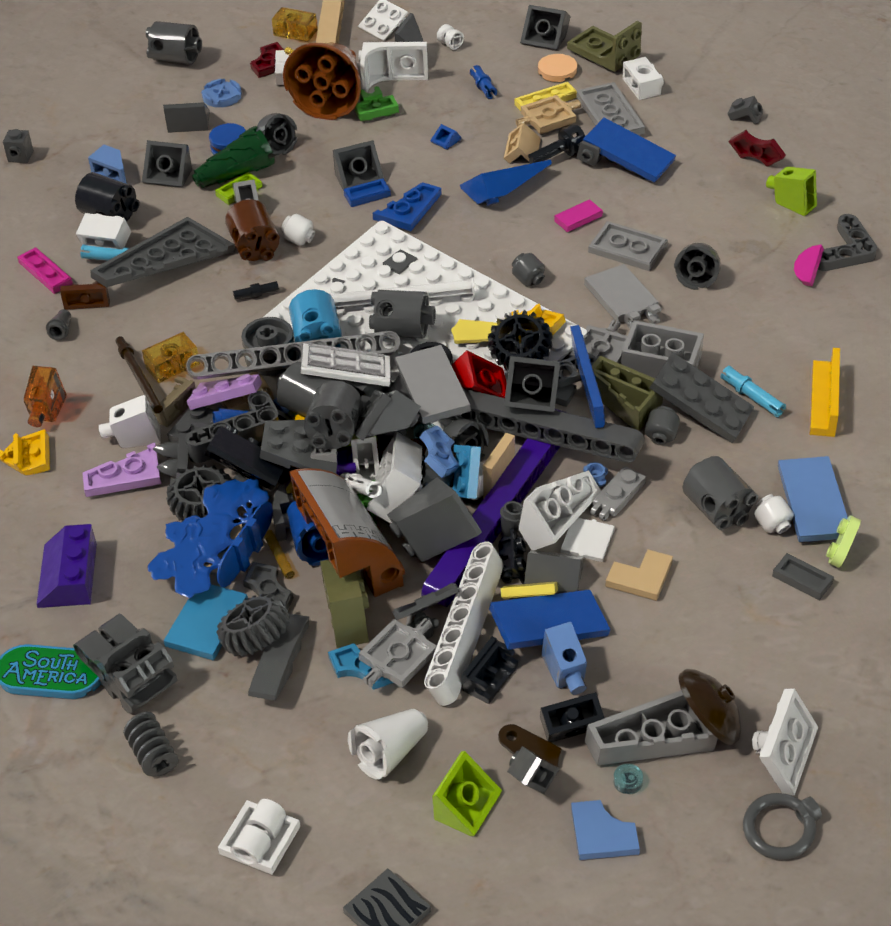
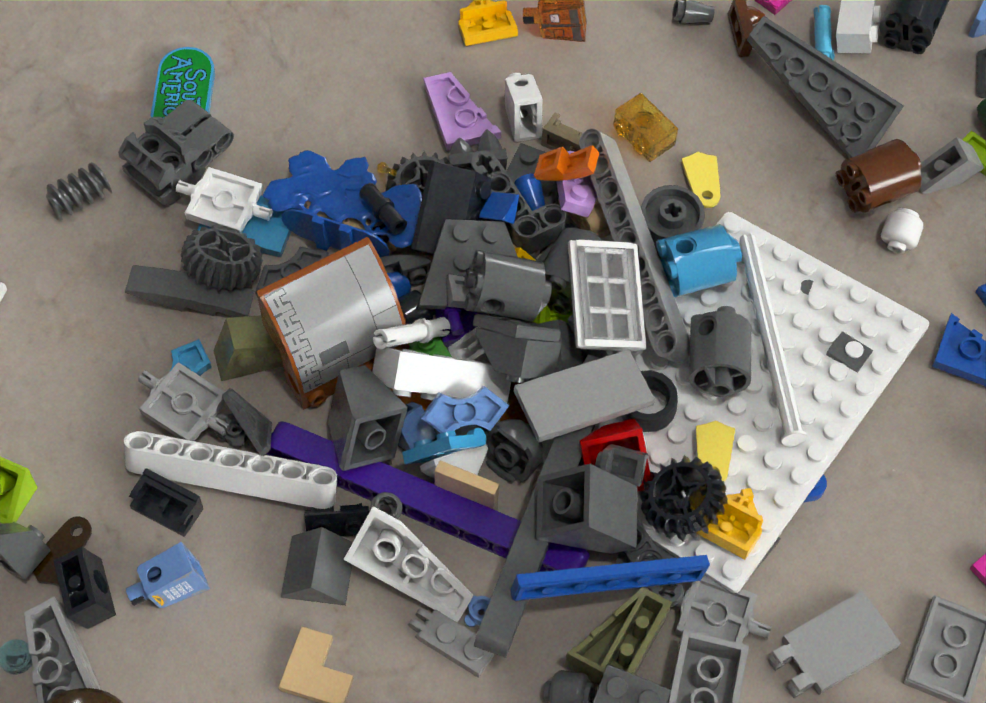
camera: 80 degrees right, 15 degrees up
(68, 568) = (315, 87): dark purple slope -> none
(127, 353) = (652, 83): dark brown bar -> none
(183, 509) = (382, 167): none -> clear yellow hinge
(189, 626) = (223, 200): none -> white plate
(215, 384) = (561, 165): none -> orange slope
(222, 332) = (703, 177): none -> light yellow piece
(232, 501) = (383, 208): none -> black pin
(249, 423) = (500, 207): none -> blue slope
(255, 290) = (782, 200): black bar -> none
(386, 741) = (66, 404): white cone -> none
(494, 366) = (623, 463): none -> dark grey bracket
(525, 619) = (233, 561): blue tile -> none
(528, 269) = (865, 514): dark grey head -> none
(528, 590) = (280, 537): light yellow tile -> none
(588, 539) = (376, 608): white piece -> none

